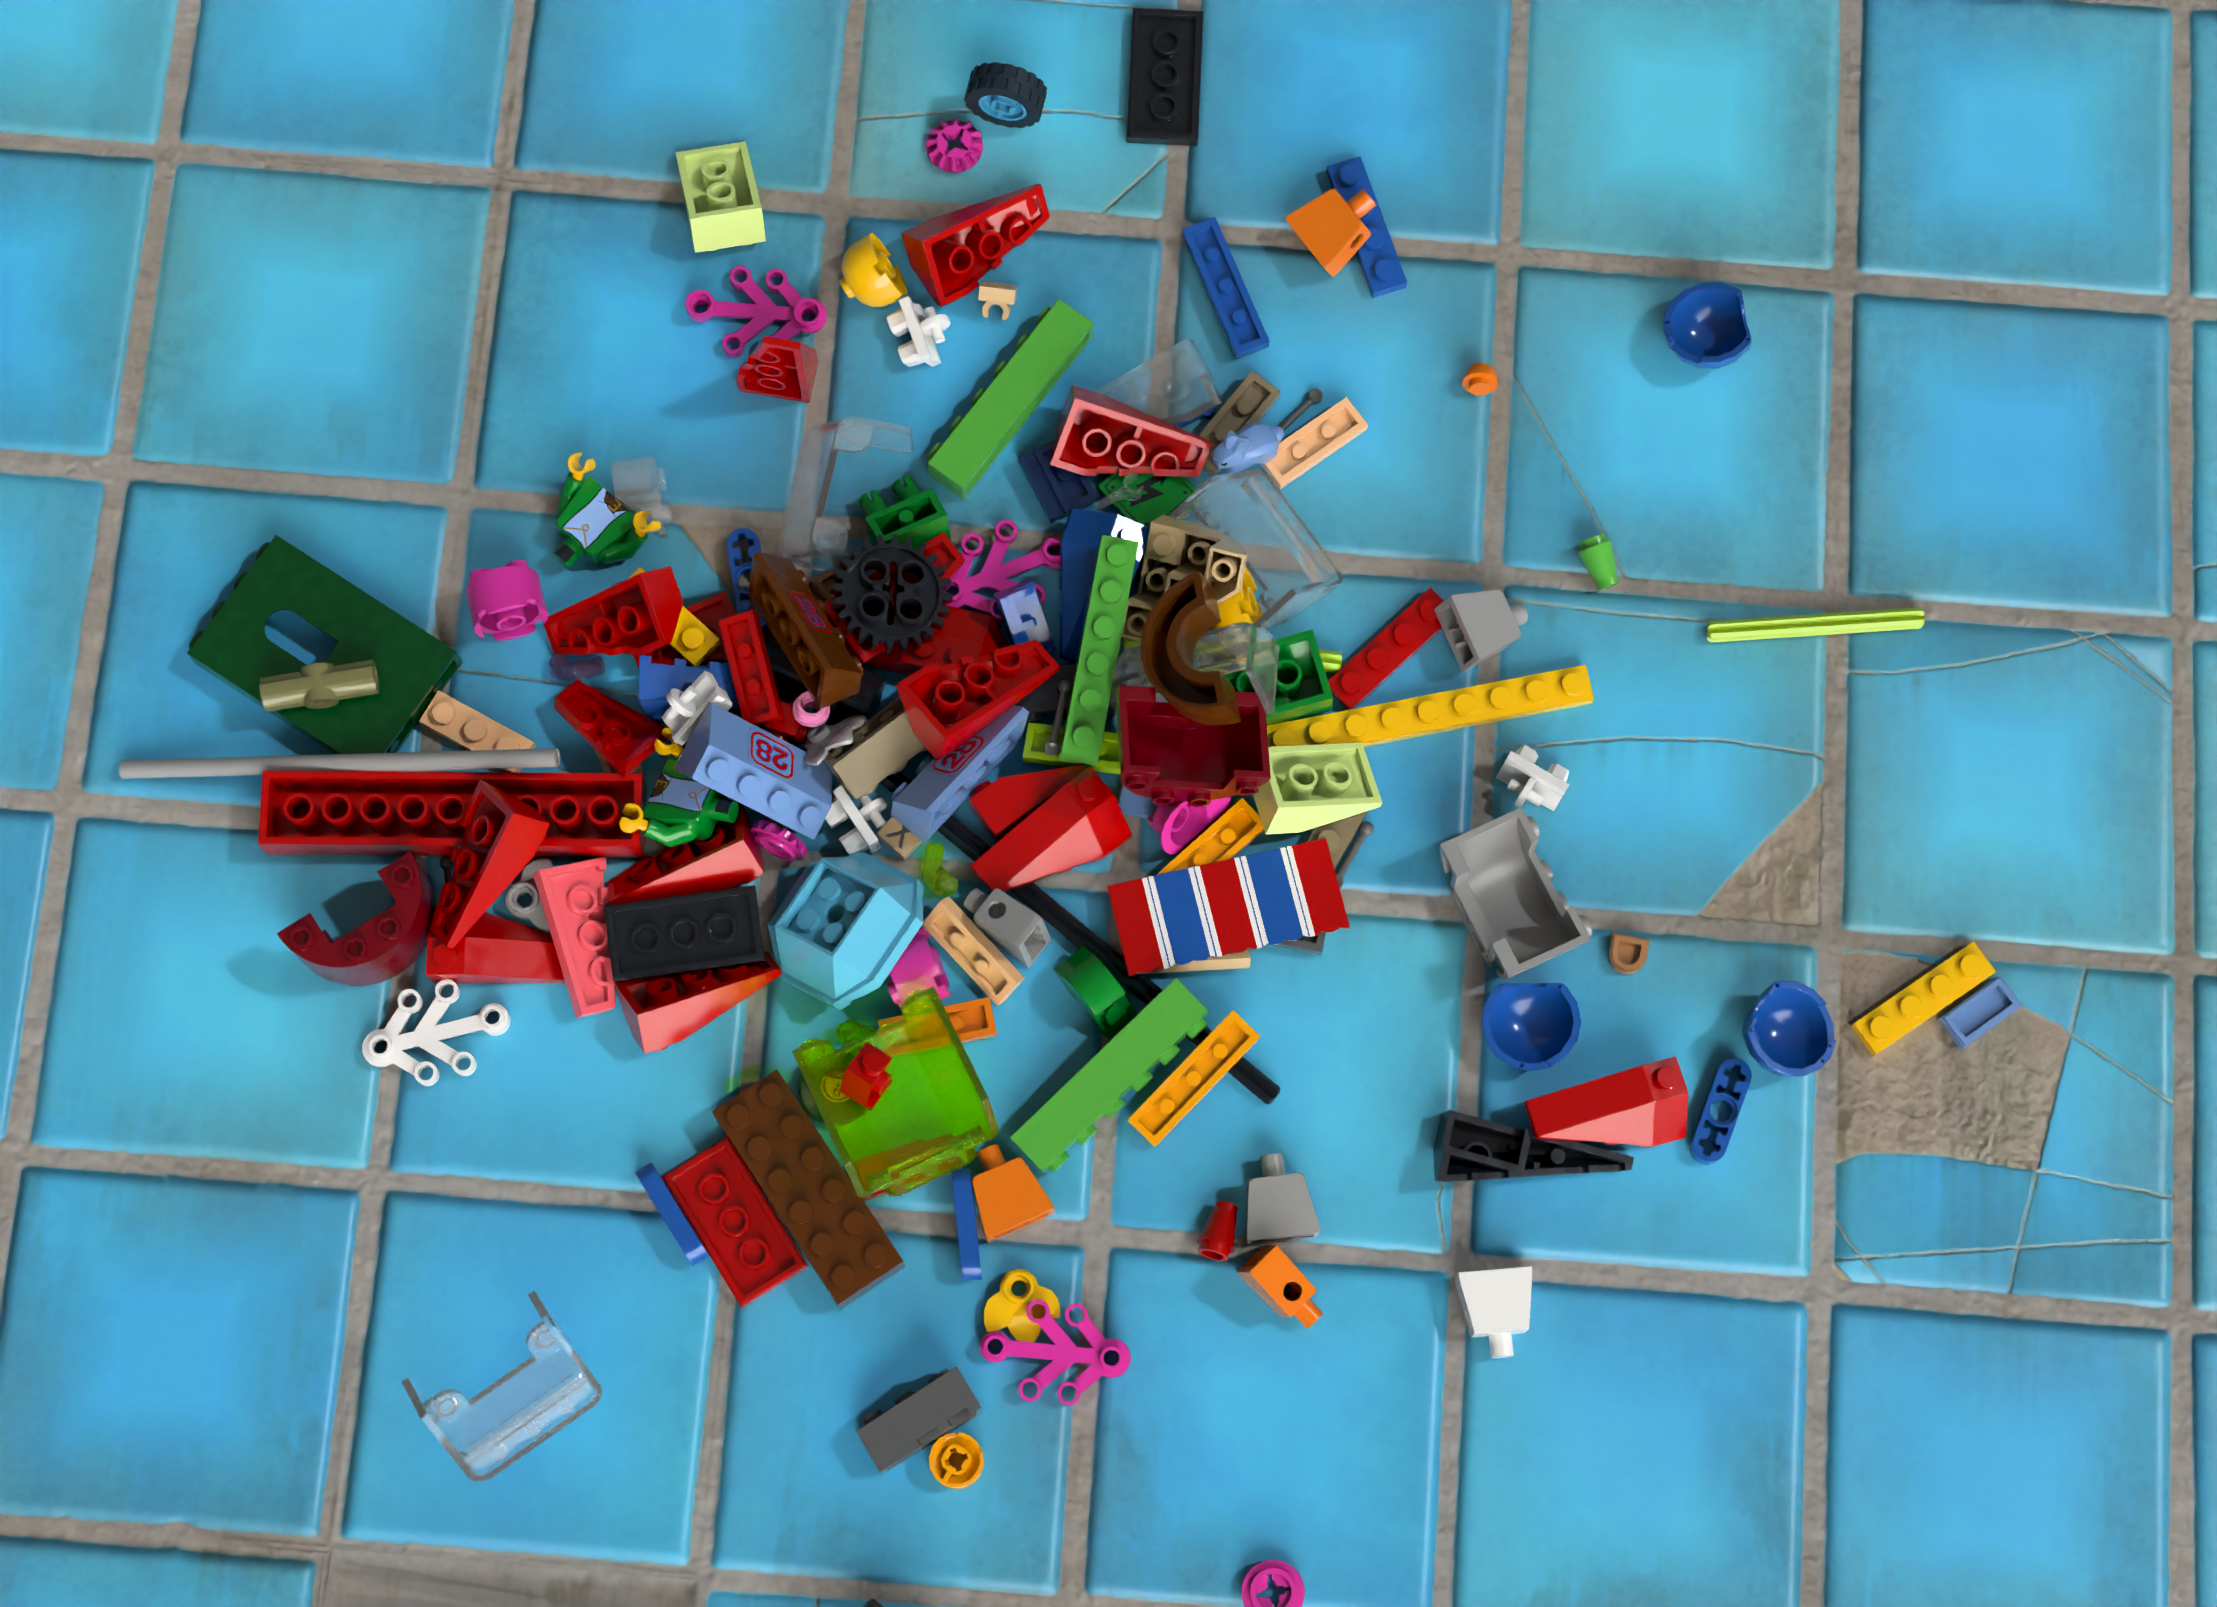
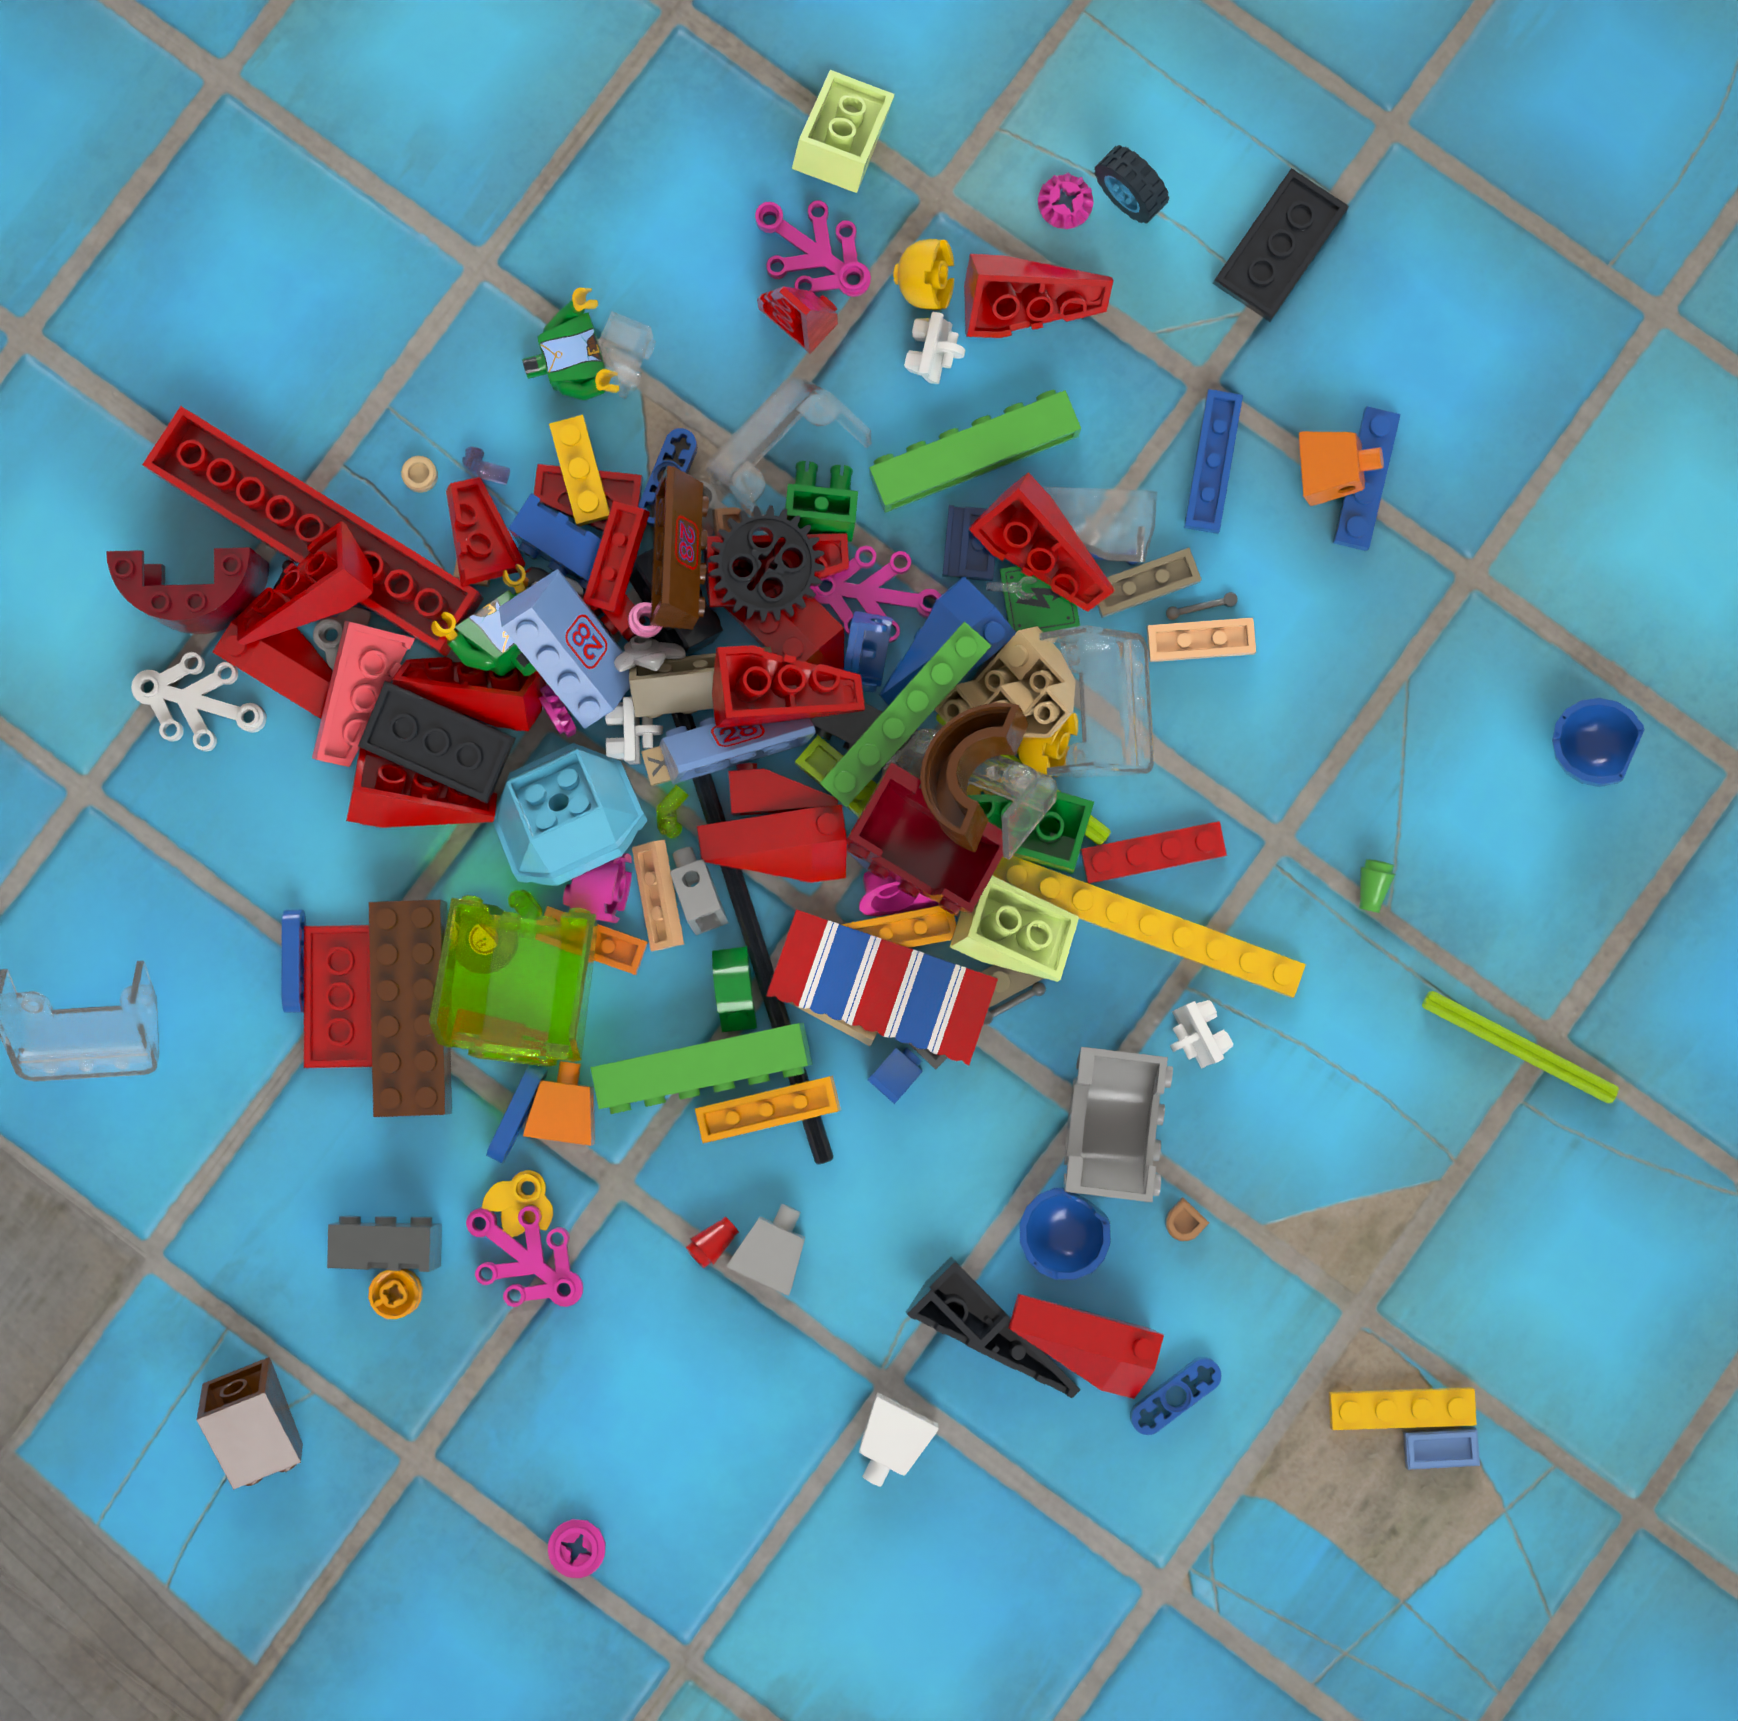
camera: 40 degrees right, 10 degrees up
(319, 685) = (265, 361): olive piece -> none
(341, 762) = (247, 437): light grey piece -> none
(407, 658) = (306, 384): dark green panel -> none
(470, 728) = (375, 473): light nougat plate -> none
(506, 601) = (458, 378): dark pink brick -> none
(518, 710) = (419, 474): none -> tan tile
(623, 619) = (538, 452): red wedge -> none
(689, 705) = (543, 560): white hips -> none
(867, 1076) = (505, 951): red brick -> none
(998, 294) = (1019, 353): tan tile -> none
(1051, 747) = (822, 768): dark grey hinge -> none
(1247, 447) = (1142, 613): medium blue animal -> none
(1269, 1273) = (730, 1305): orange torso -> none
(1289, 978) = (896, 1074): none -> blue slope
(1479, 625) = (1238, 880): light grey torso -> none
(1480, 379) = (1375, 669): orange plate -> none
(1789, 1030) = (1271, 1370): blue cylinder -> none

